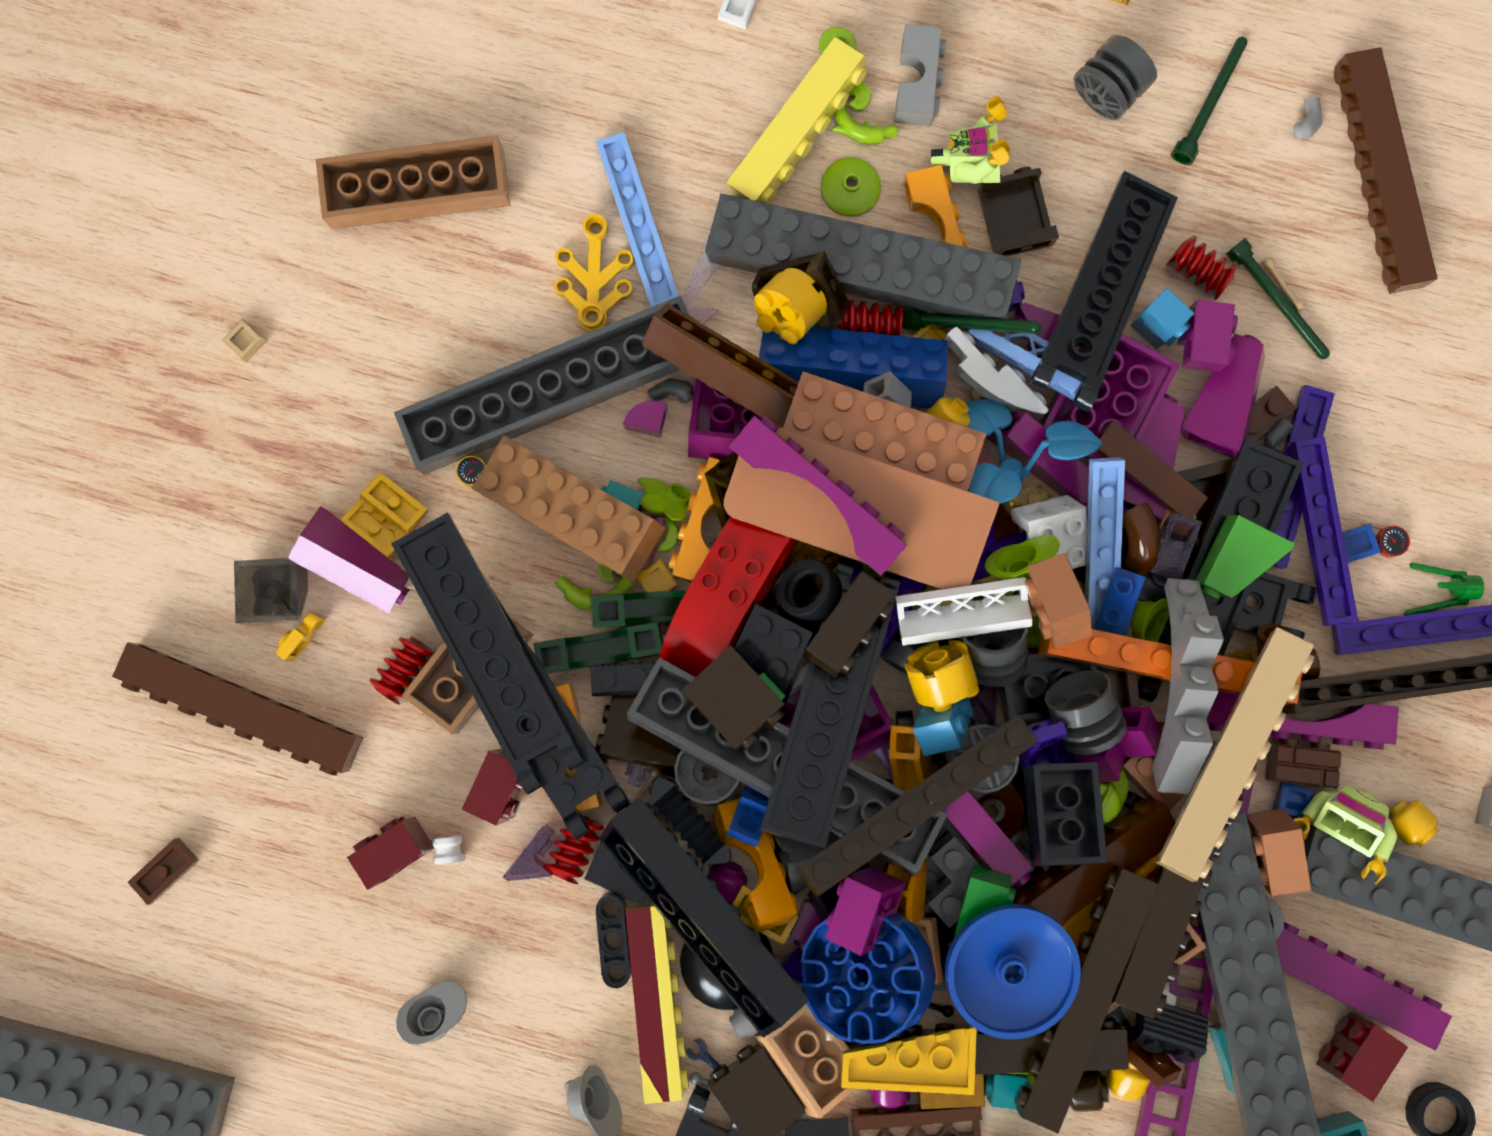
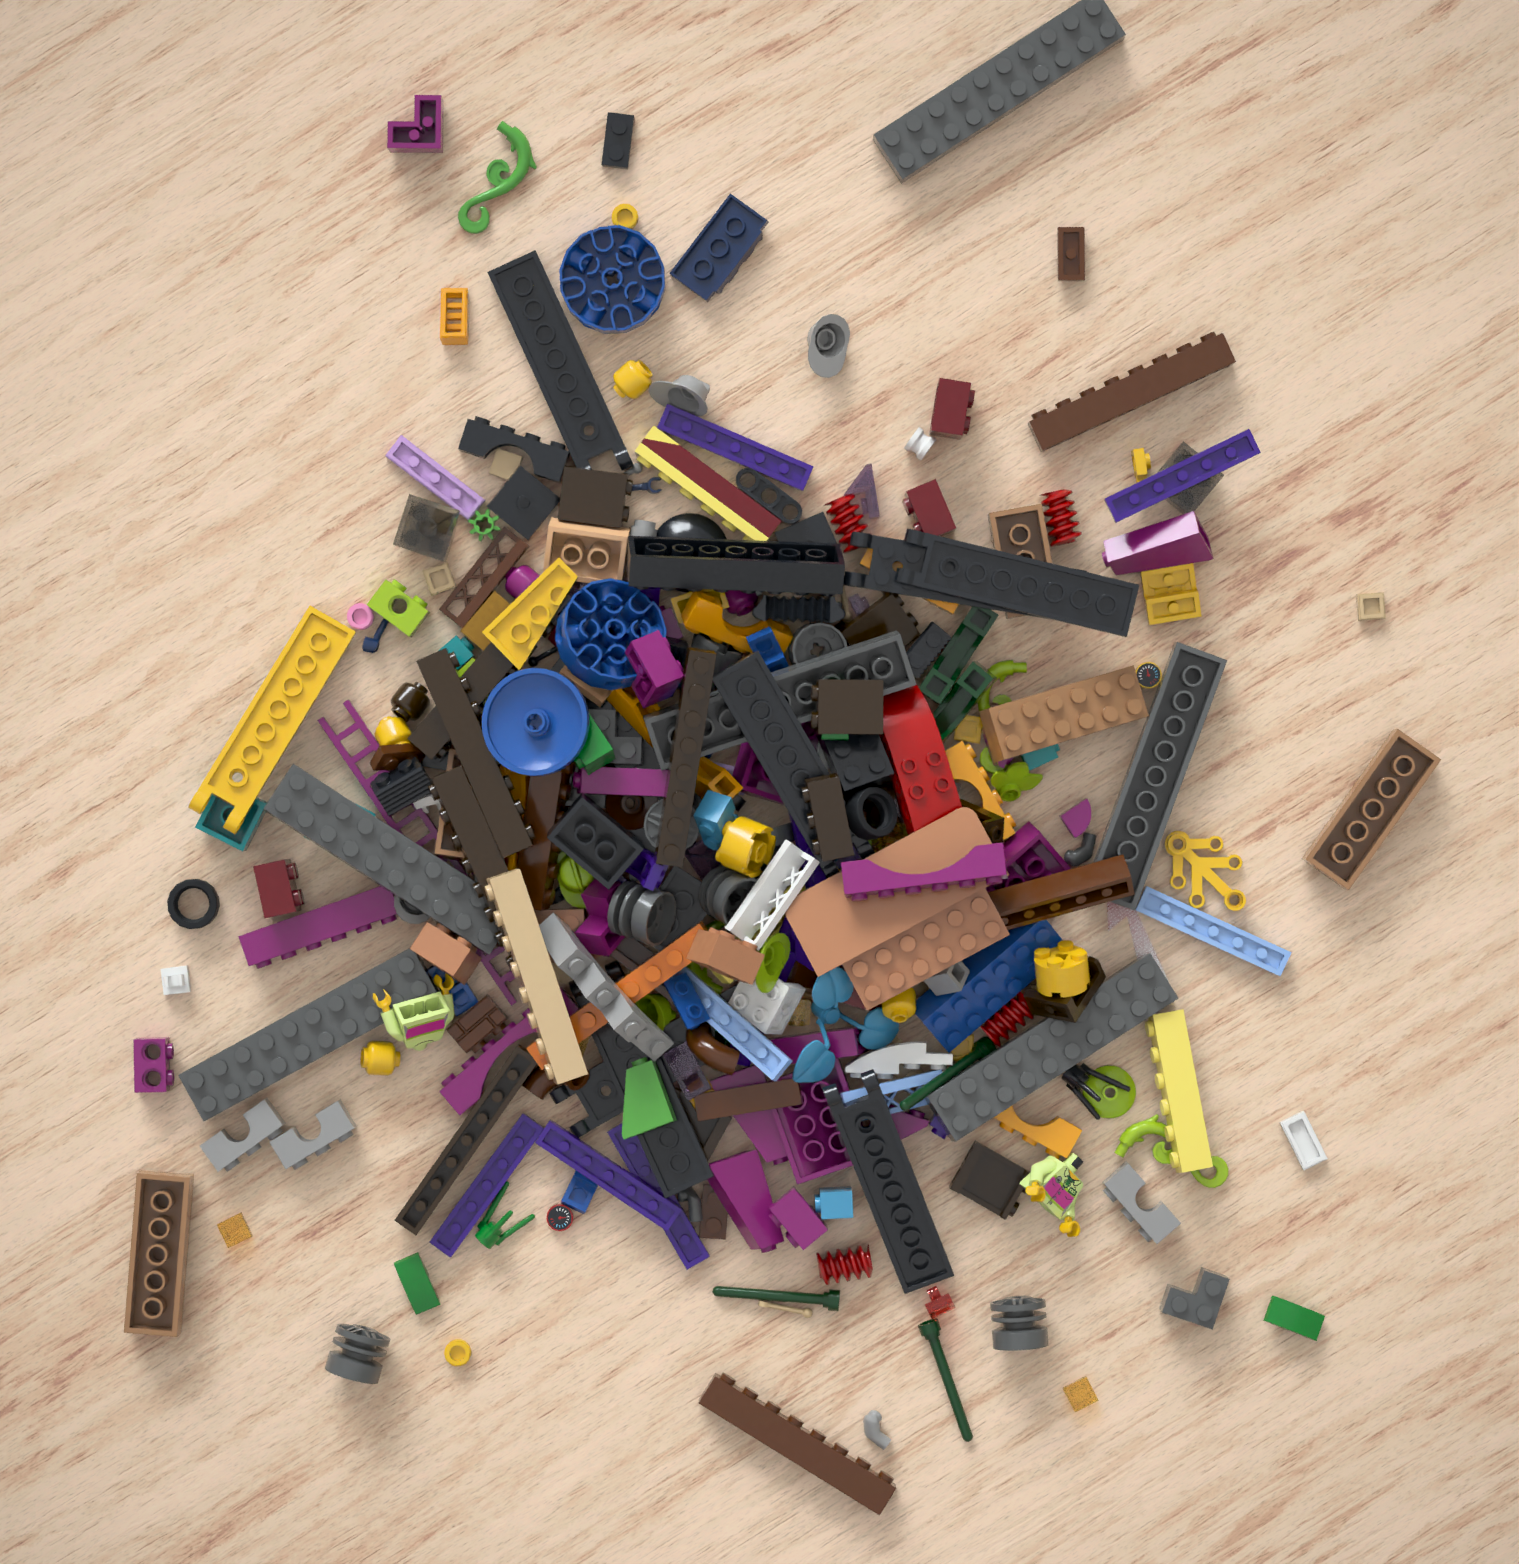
camera: 140 degrees right, 5 degrees up
(264, 595) = (1182, 475): none -> dark purple plate
(598, 1010) = (735, 447): none -> dark purple plate
(869, 215) = (1077, 1079): none -> black plant
(1159, 161) = (938, 1304): none -> clear red tile

